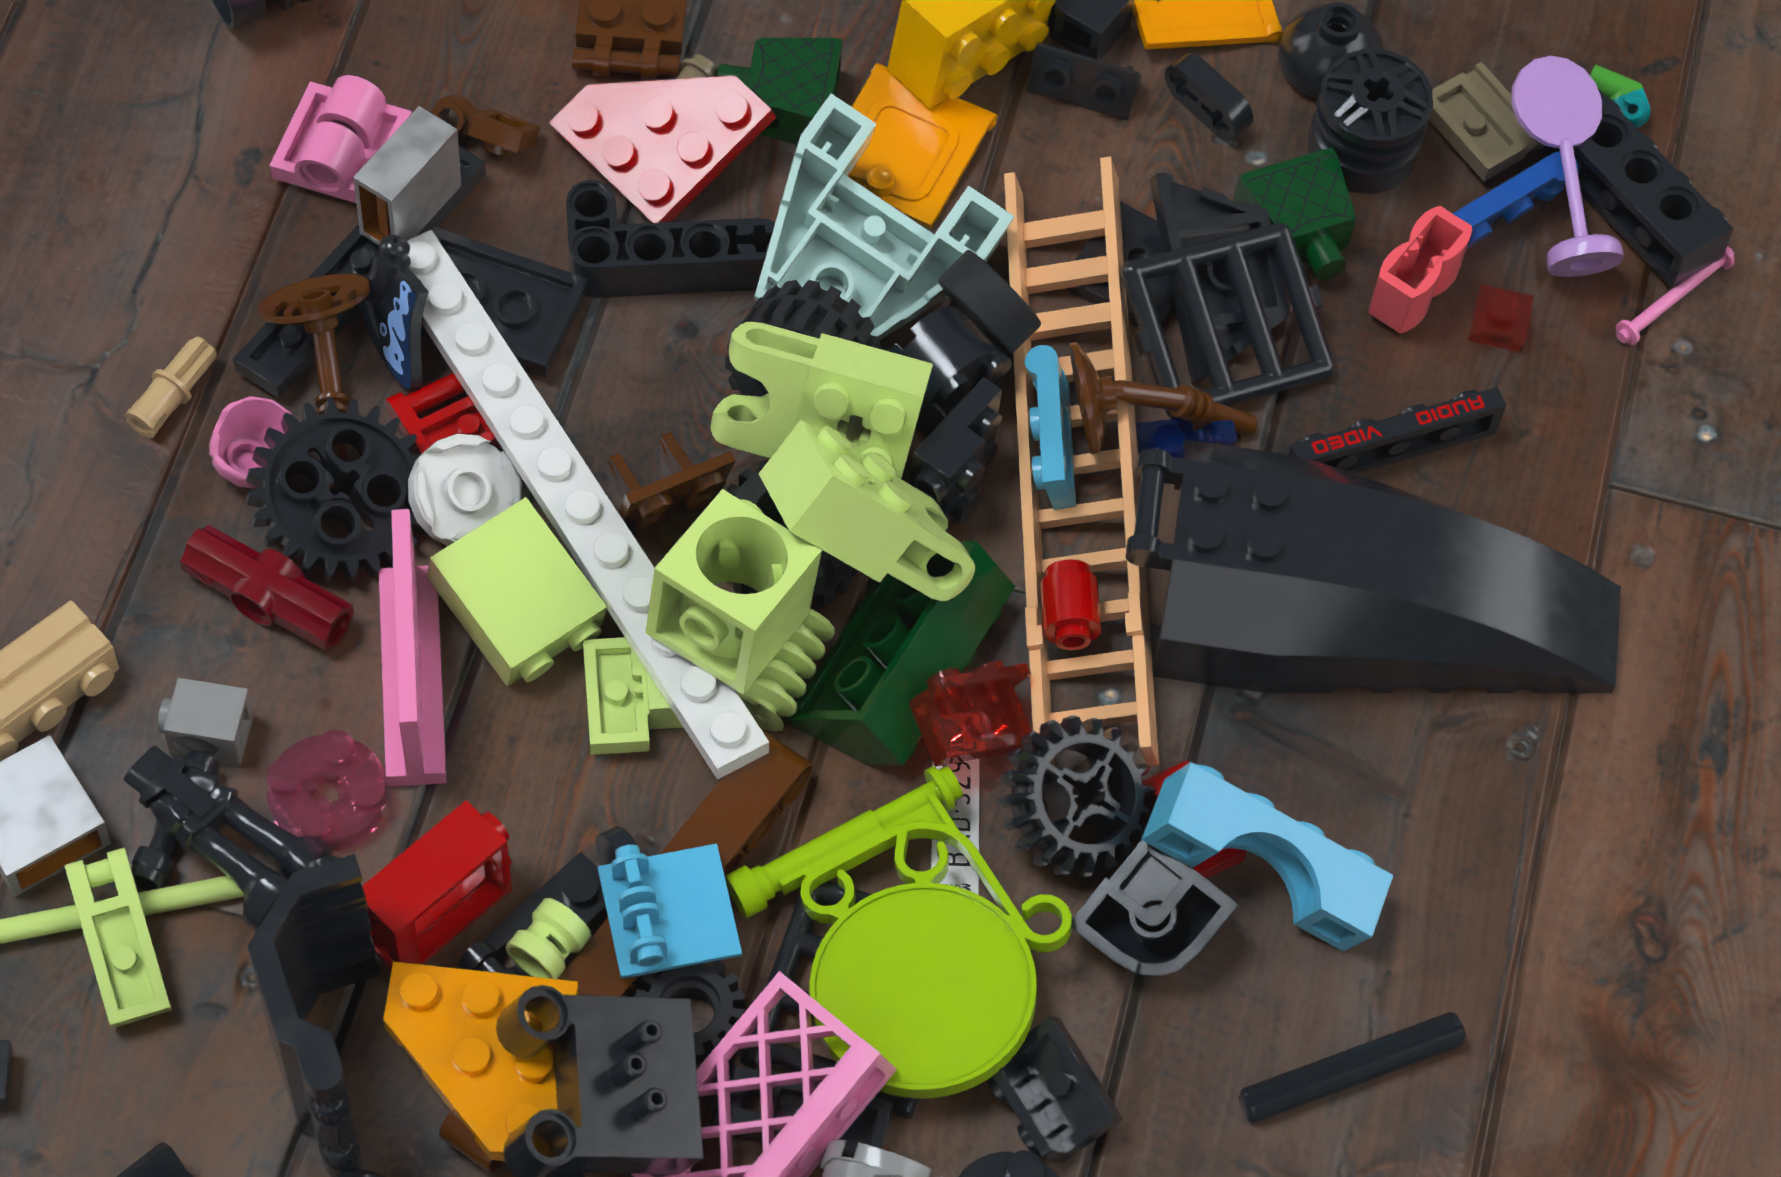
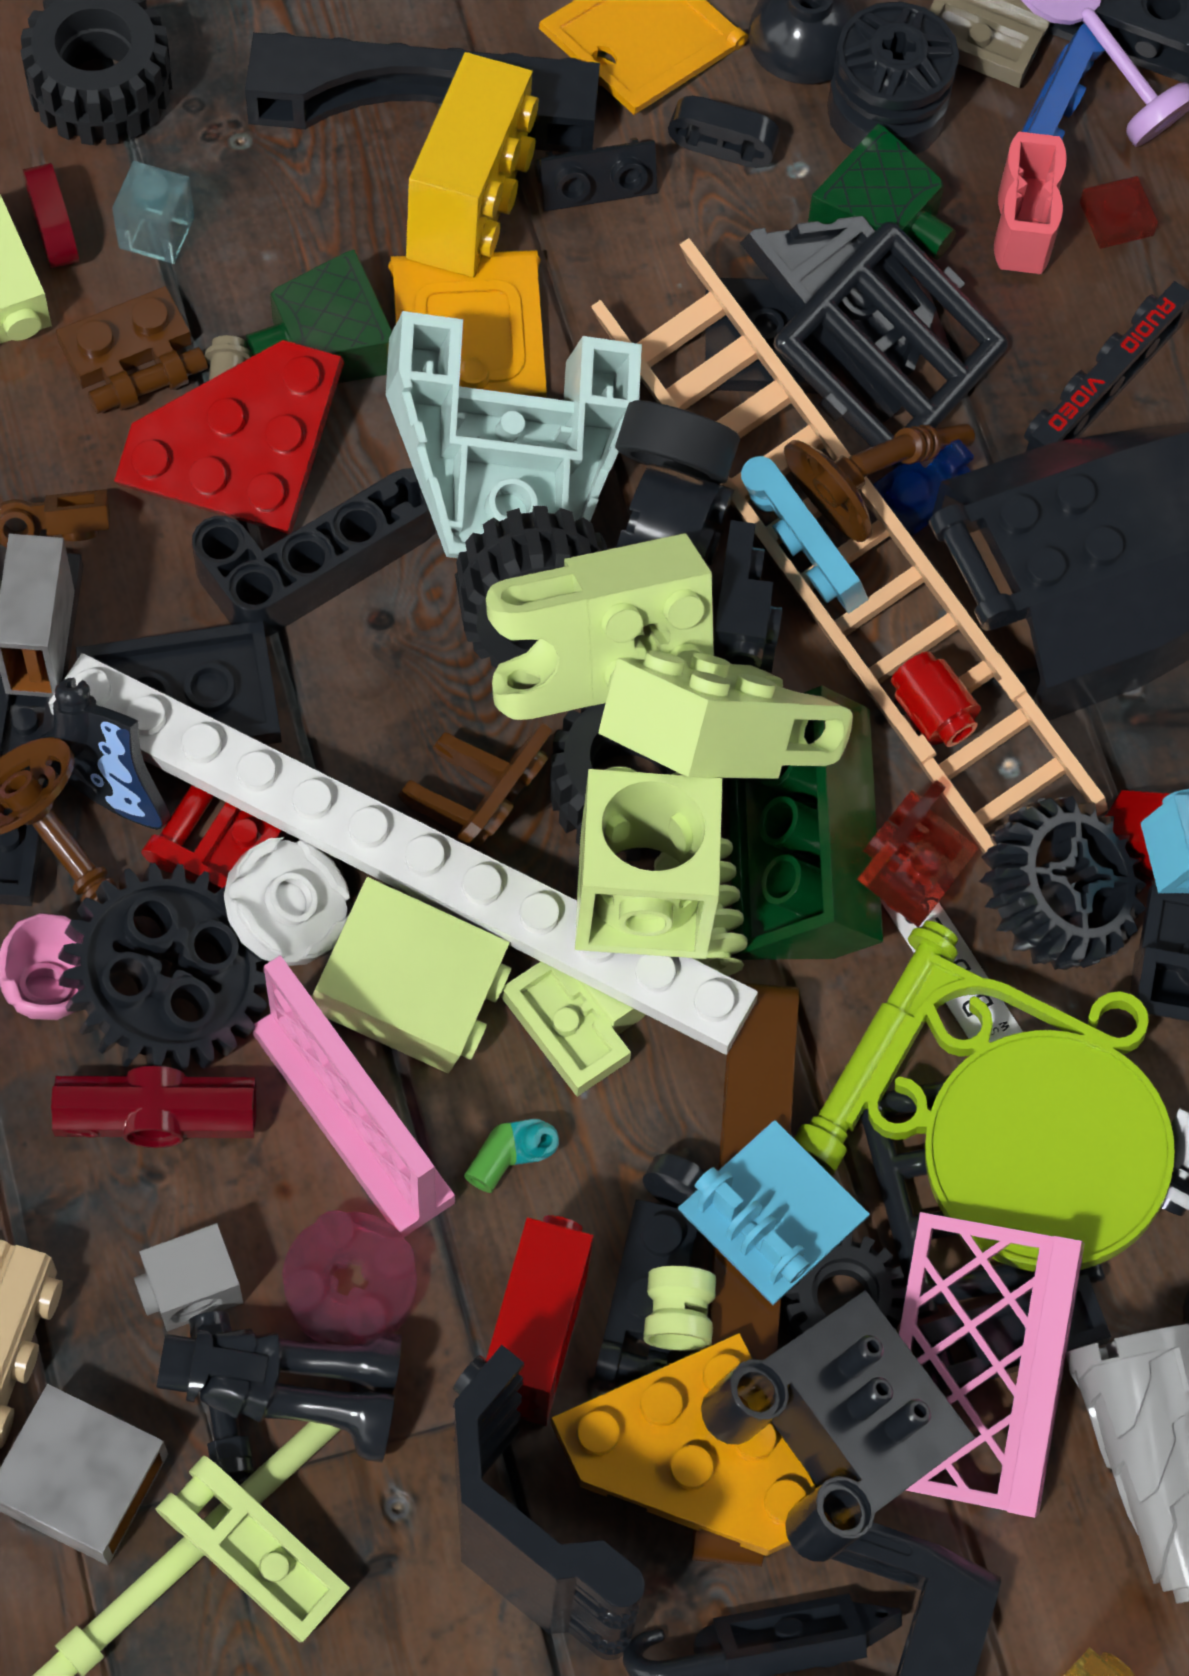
camera: 30 degrees left, 5 degrees up
(512, 761) = (511, 1145): none -> arm

